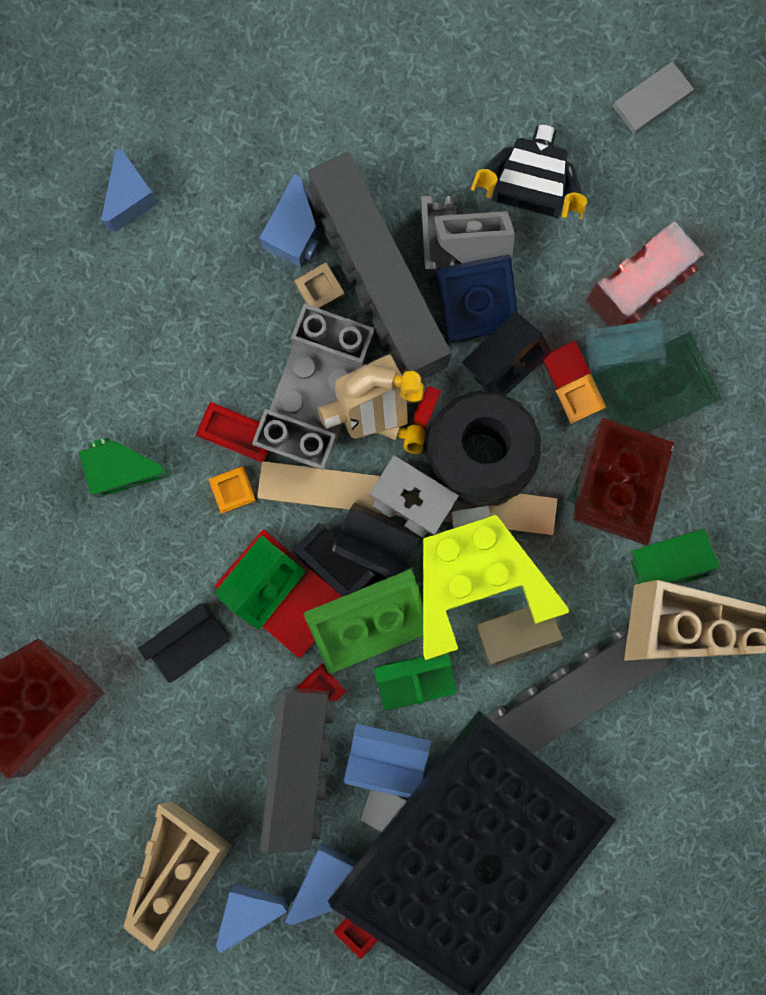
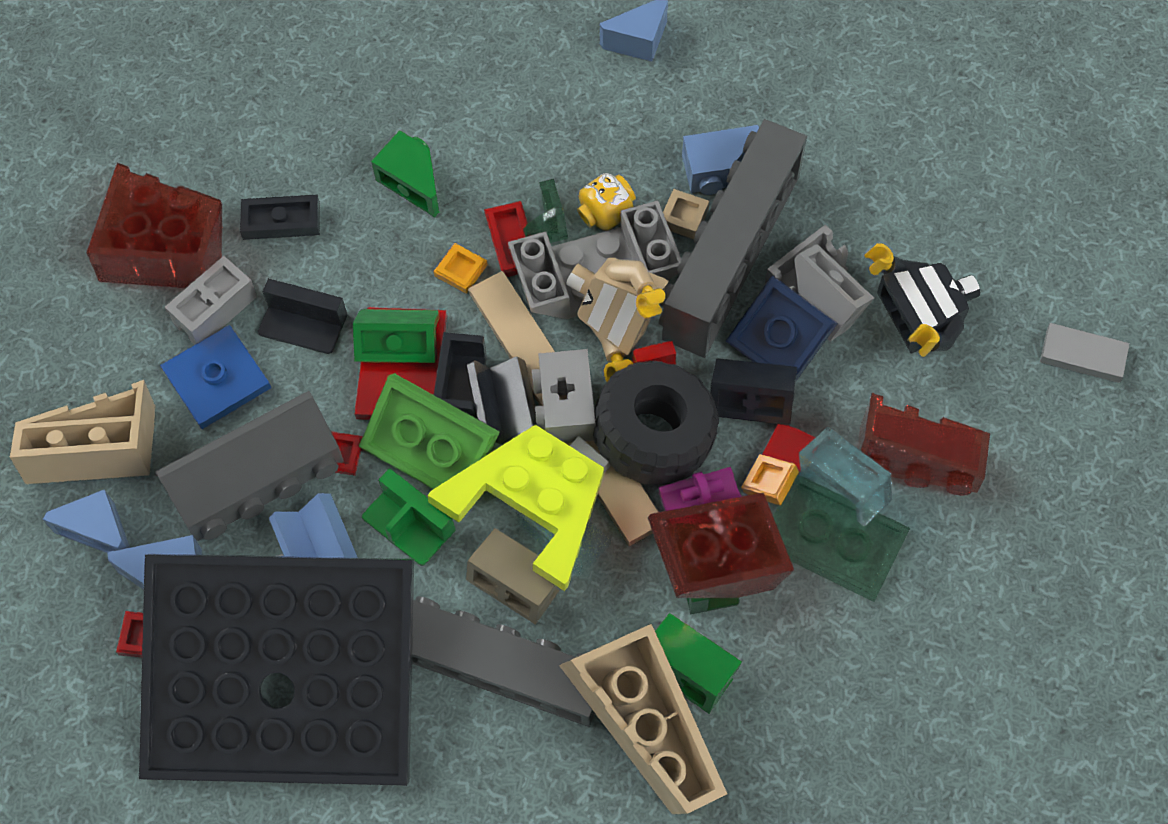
camera: 50 degrees right, 20 degrees down
(78, 597) = (280, 217): none -> black plate
(119, 704) = (211, 300): none -> light grey hinge
(184, 740) = (215, 376): none -> blue plate
(252, 390) = (553, 218): none -> clear green tile
(265, 339) = (604, 200): none -> yellow head
(563, 460) = (700, 489): none -> magenta hips

